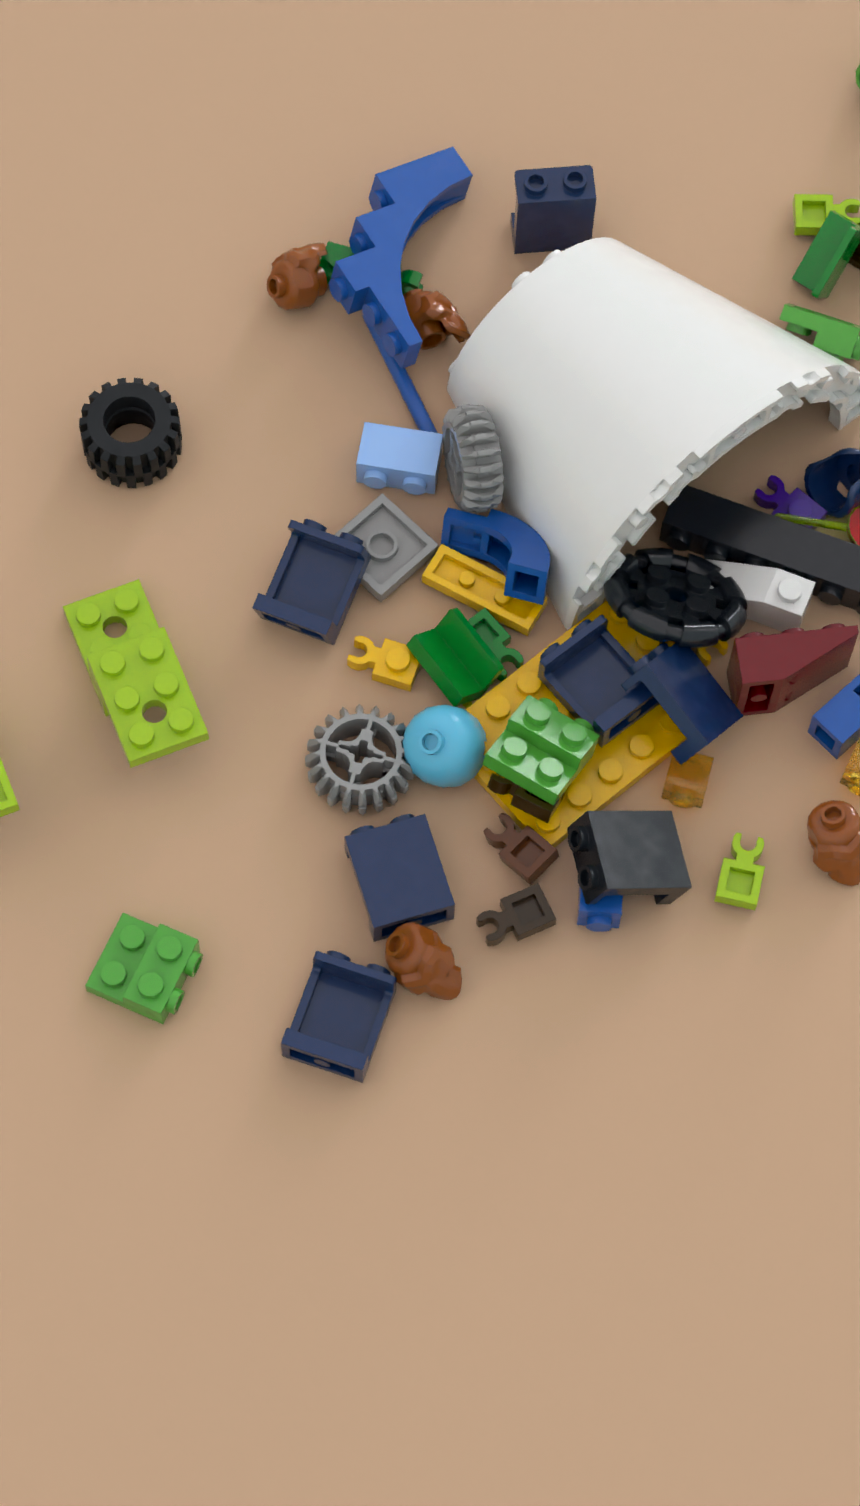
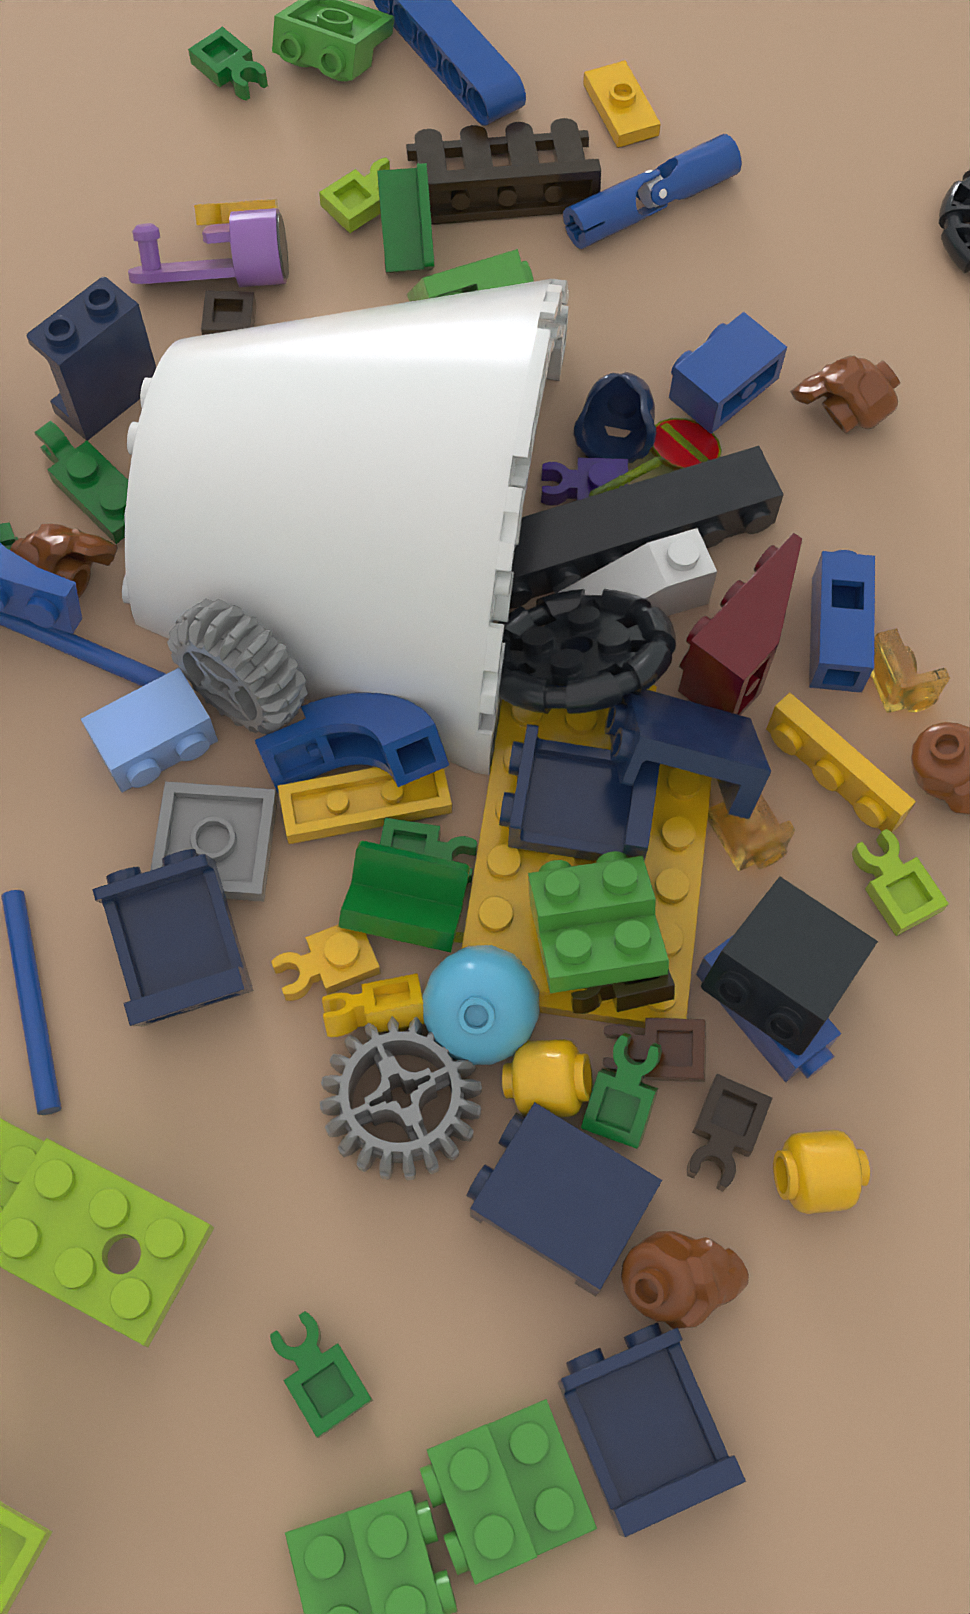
camera: 40 degrees left, 0 degrees up
(200, 862) = (326, 1382): none -> green plate
(213, 557) = (31, 1003): none -> blue bar
(244, 985) = (507, 1492): none -> bright green plate
(387, 701) = (375, 1005): none -> yellow plate
(448, 812) = (550, 1075): none -> yellow head
(475, 853) = (619, 1100): none -> green plate
(490, 274) = (87, 480): none -> green plate
(545, 974) = (820, 1171): none -> yellow head
(665, 237) = (228, 311): none -> dark brown plate
(716, 206) = (256, 250): none -> medium lavender piece
(739, 176) = (220, 212): none -> yellow plate
(770, 783) = (838, 765): none -> yellow plate
(821, 56) = (227, 59): none -> green plate

